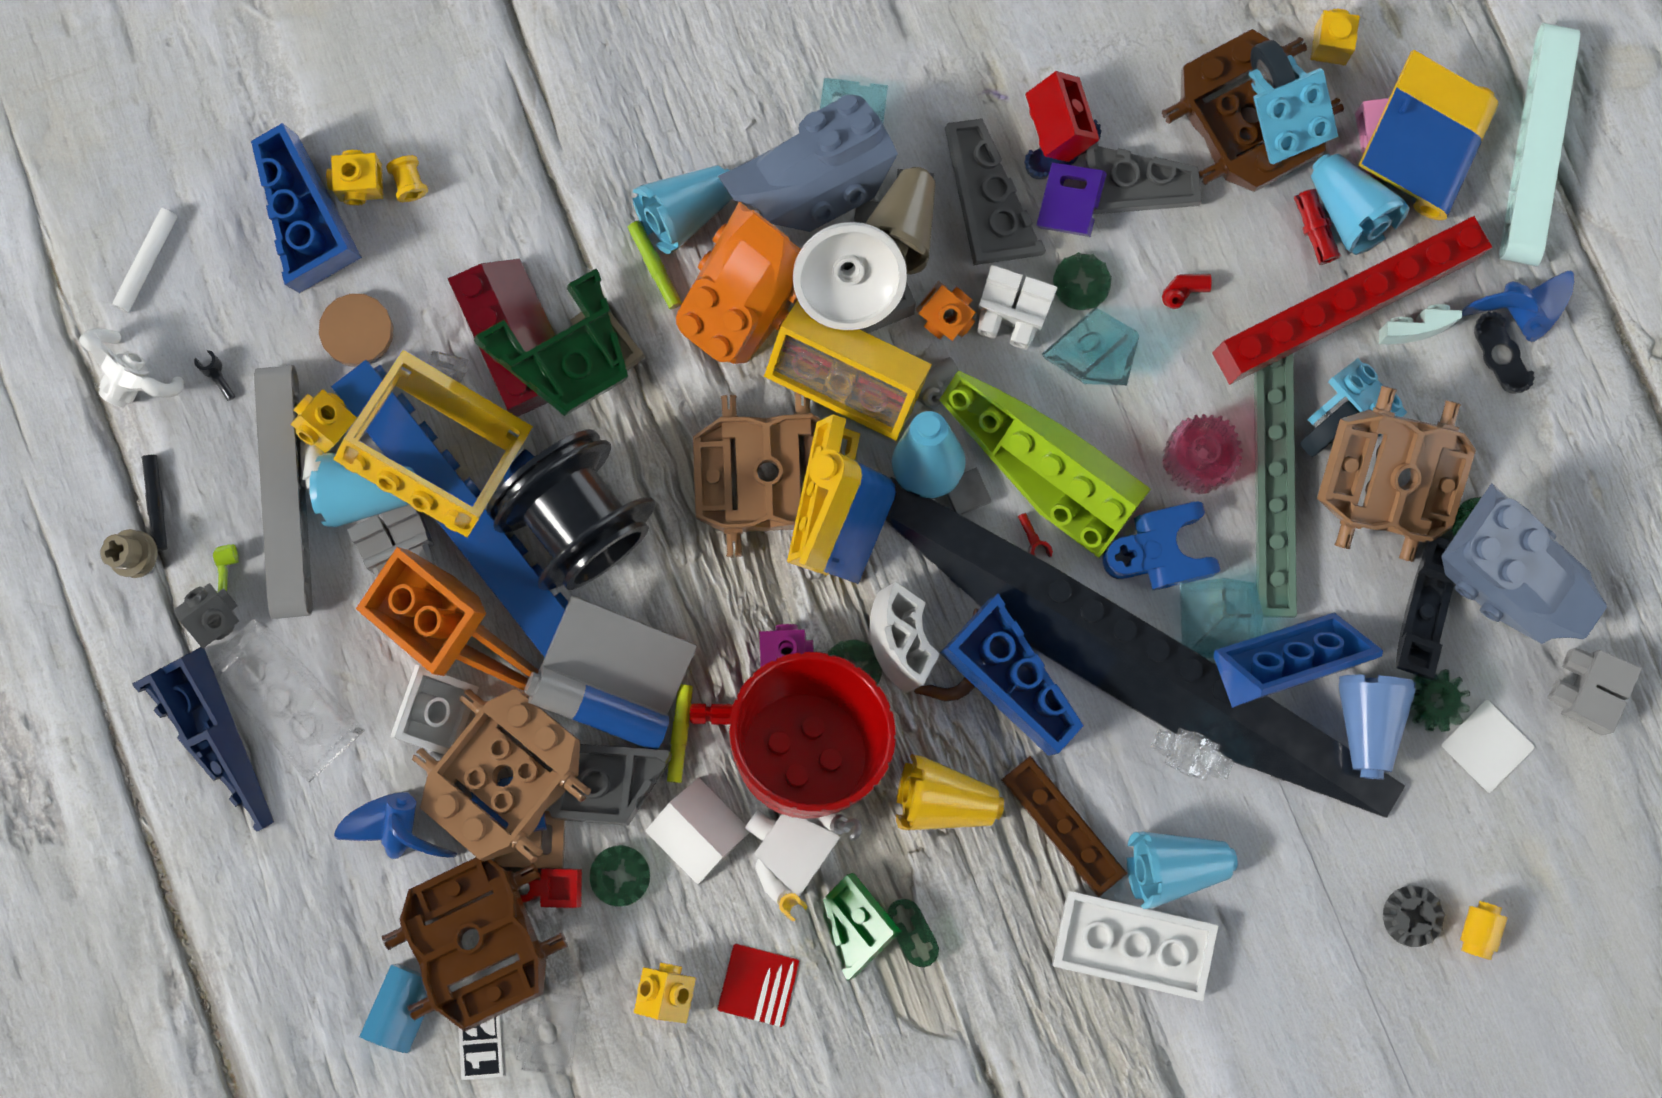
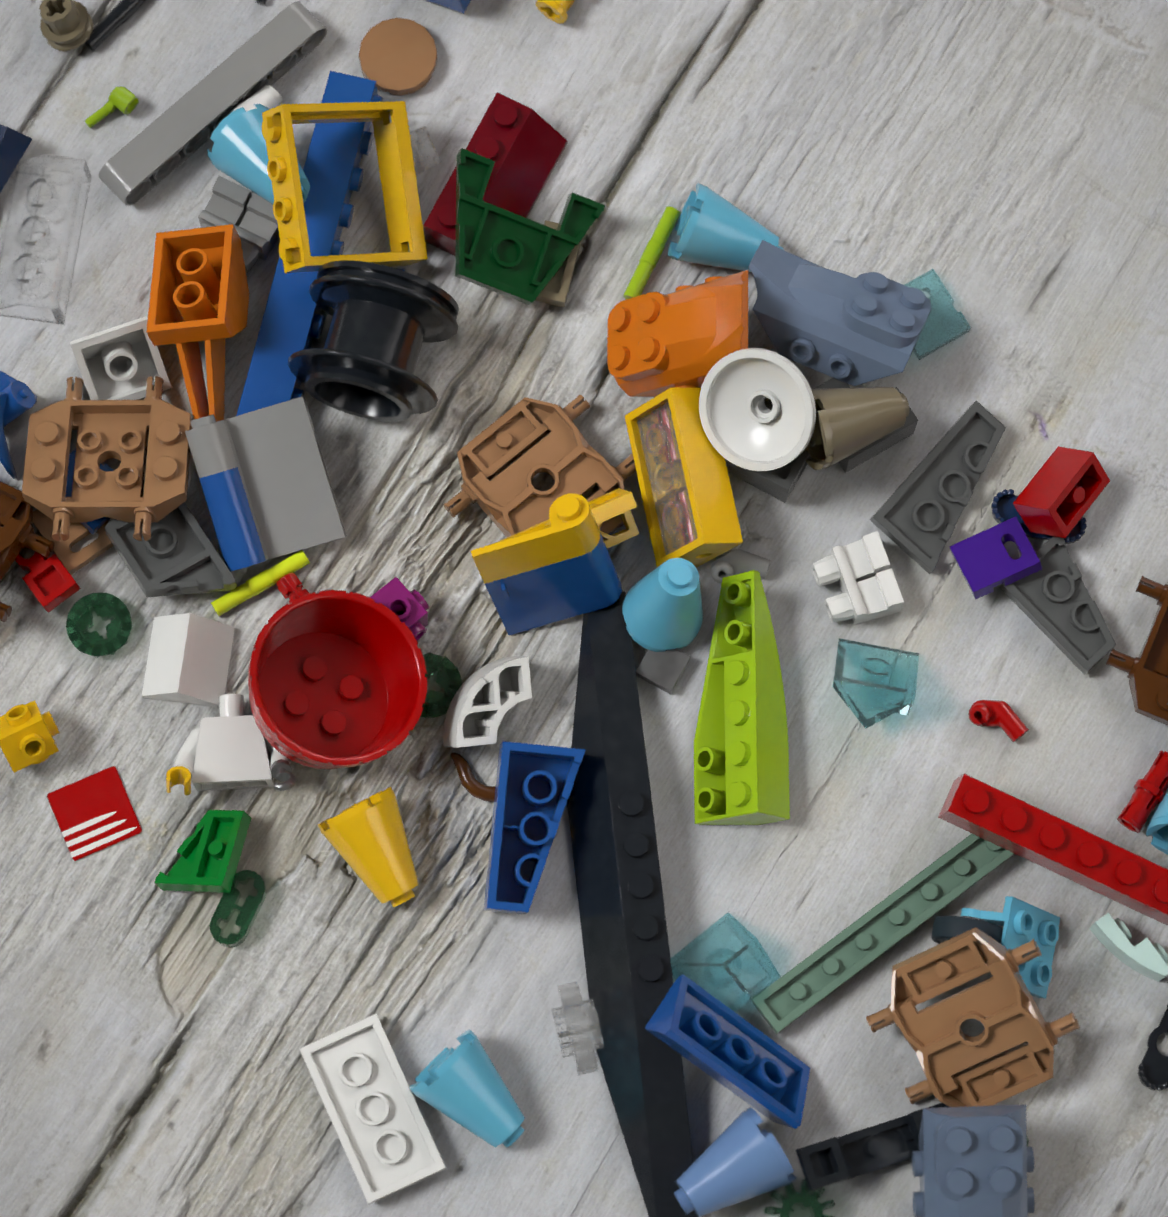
camera: 50 degrees right, 5 degrees down
(207, 614) = (61, 122): dark grey brick -> none
(322, 420) = (283, 79): yellow brick -> none
(940, 300) = (792, 522): orange brick -> none
(1033, 537) = (668, 752): red hand -> none
(1064, 826) = (431, 970): reddish brown tile -> none
(1071, 293) = (932, 642): clear green gear -> none
(1156, 549) = (739, 864): blue piece -> none
(1198, 473) = (873, 824): clear pink brick -> none

